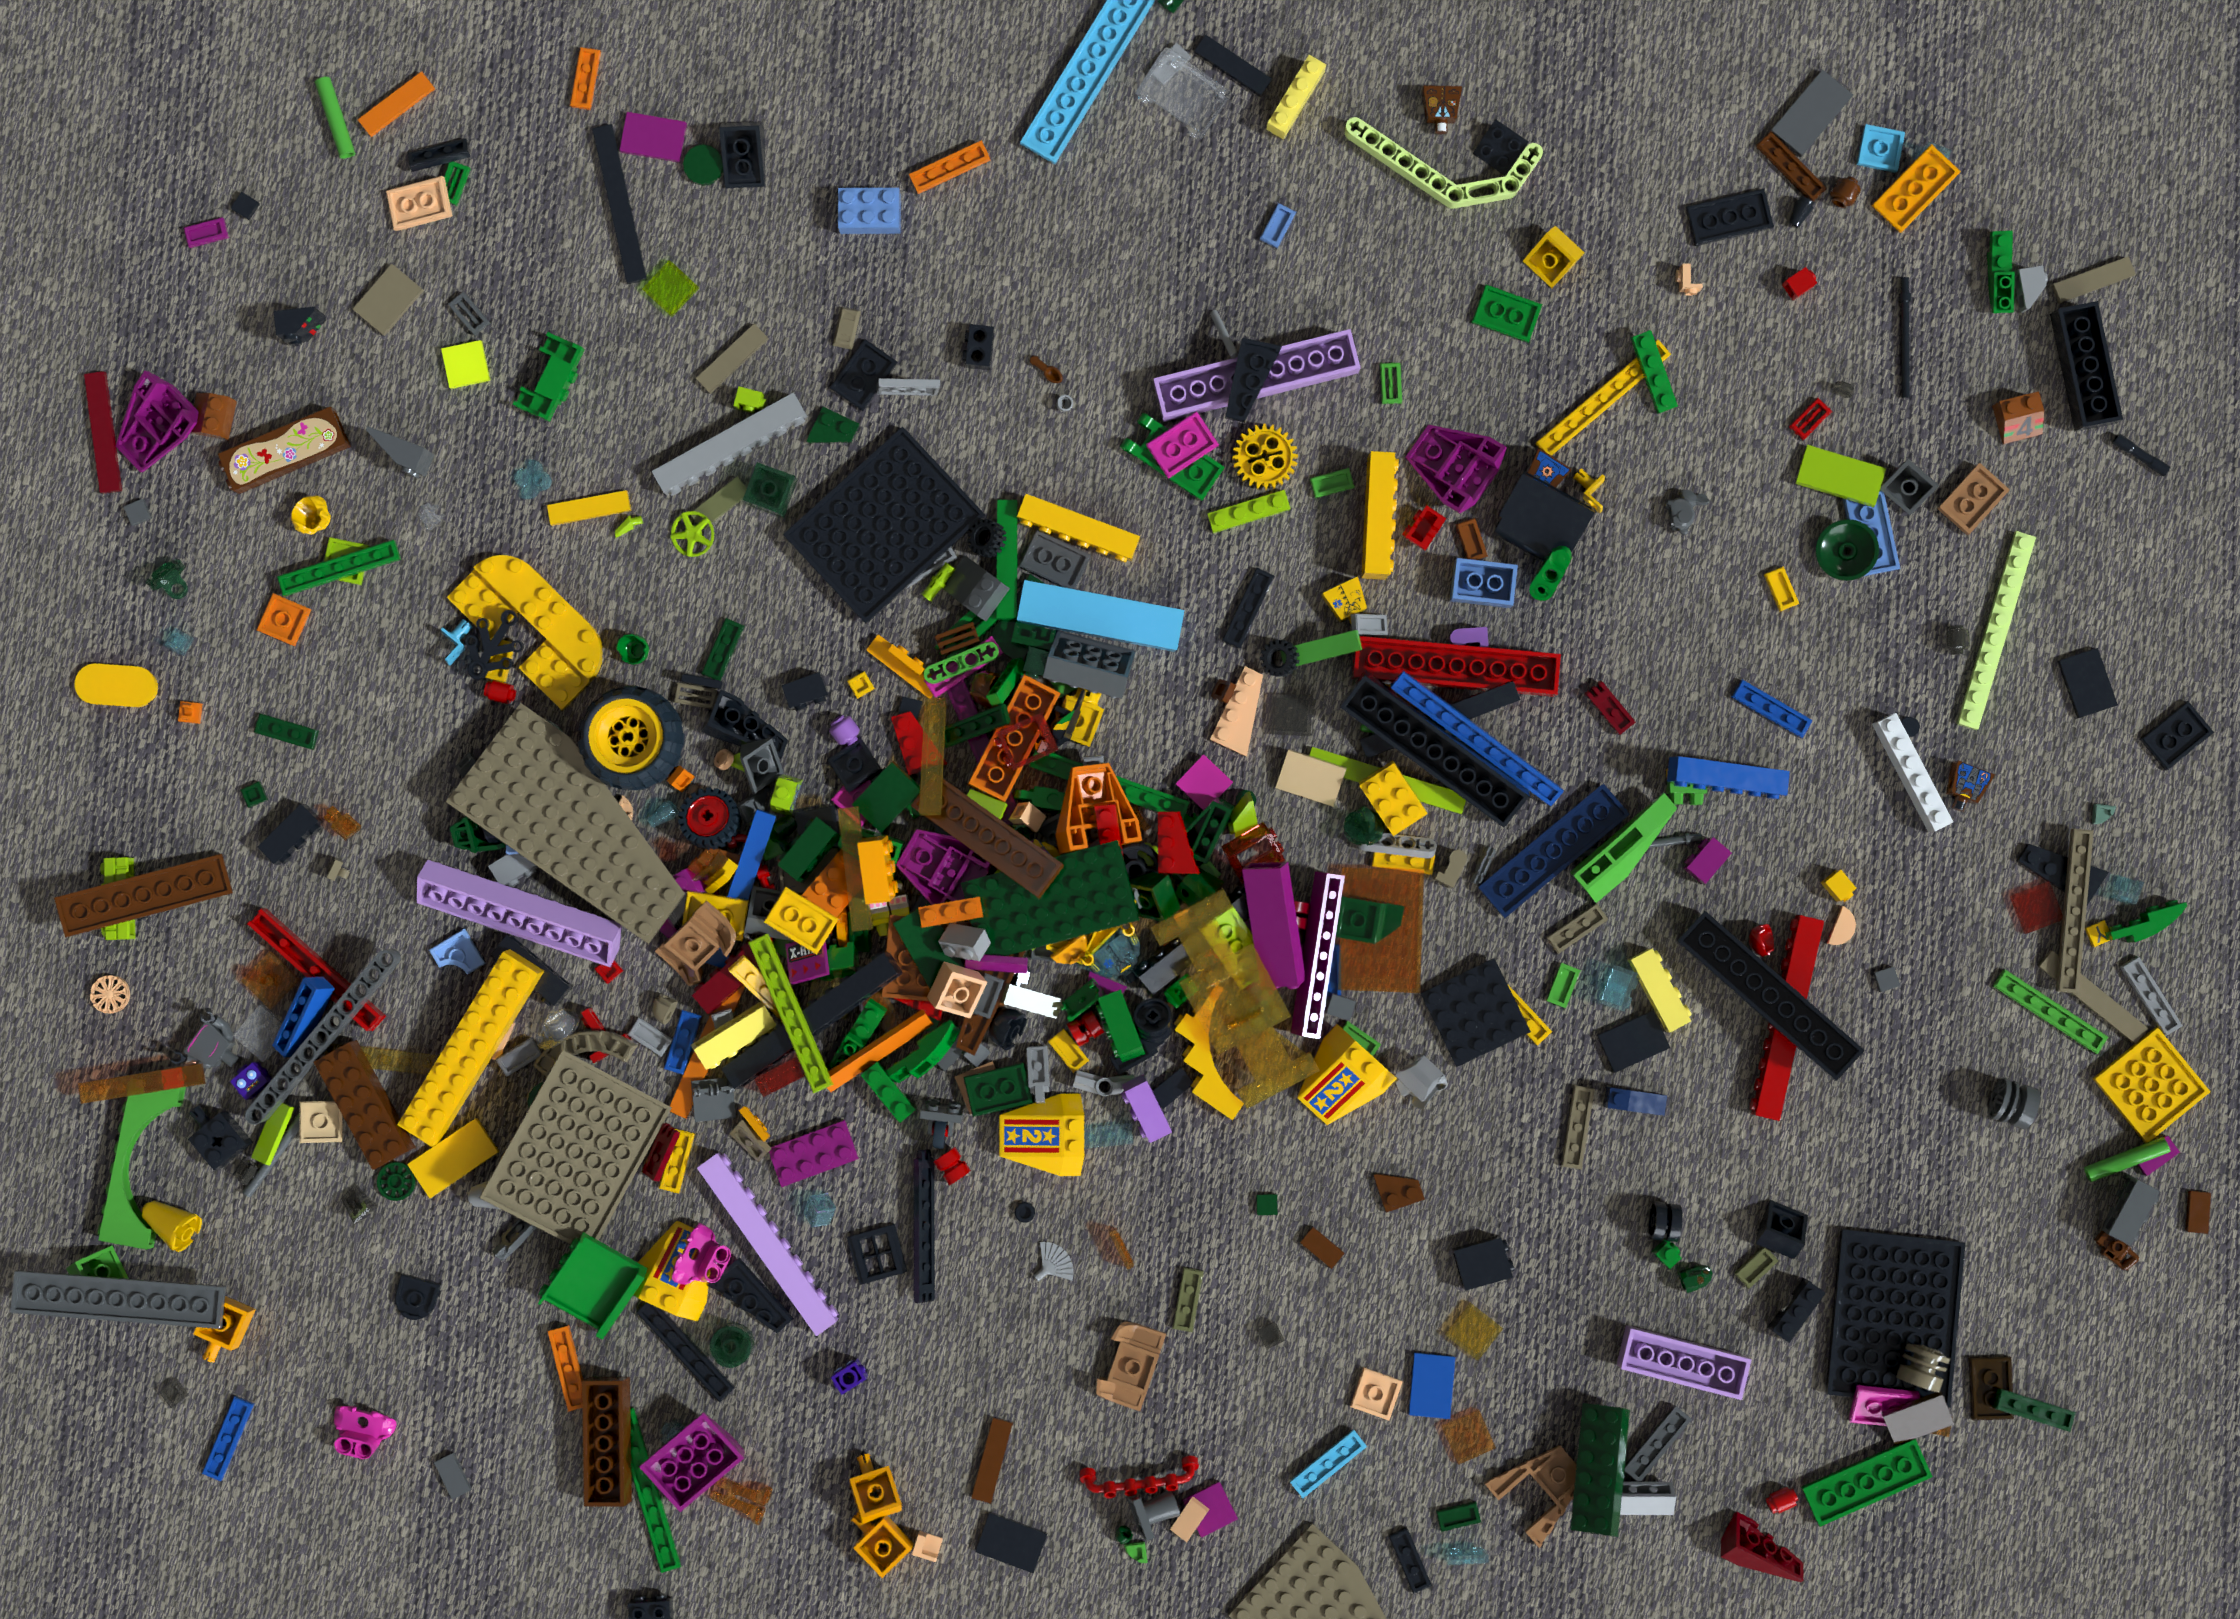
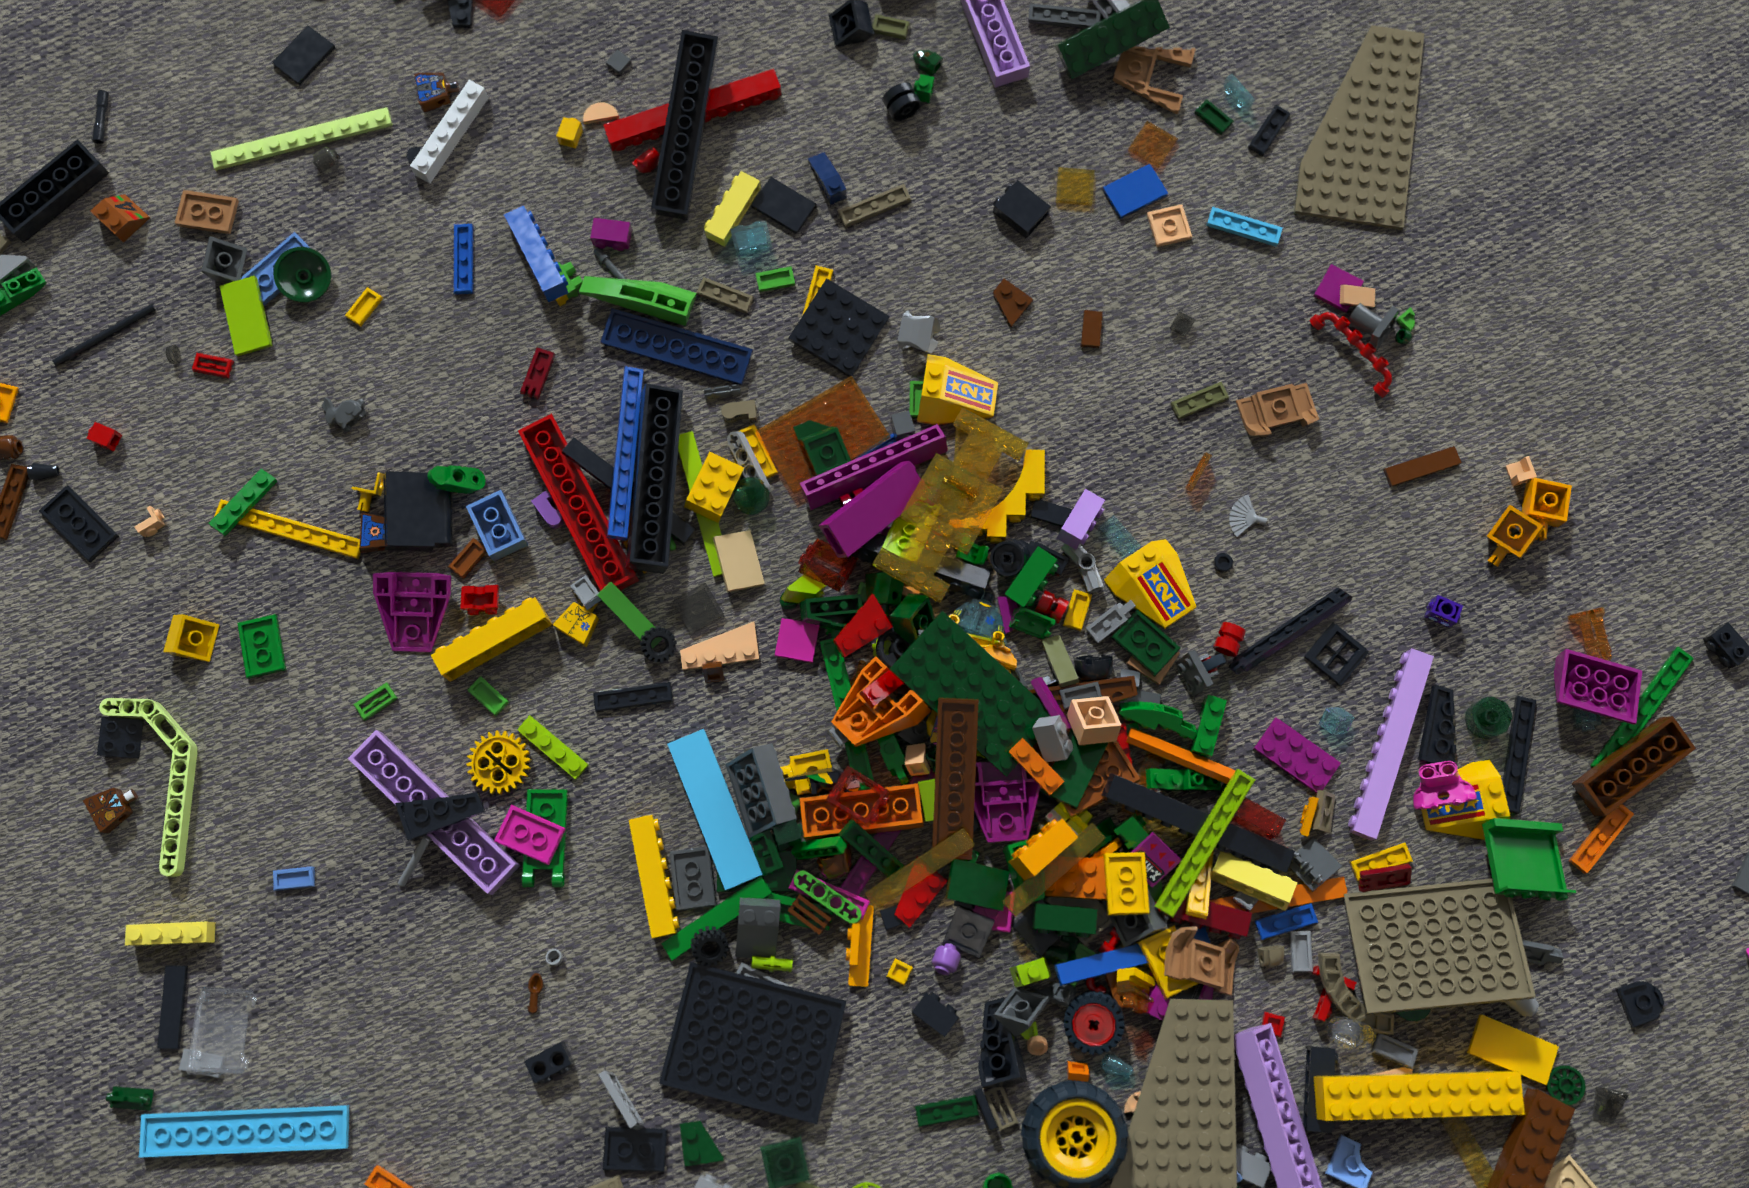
camera: 125 degrees left, 10 degrees down
(1011, 1542) = (1470, 413): black tile -> none
(1266, 1204) = (1088, 388): dark green tile -> none

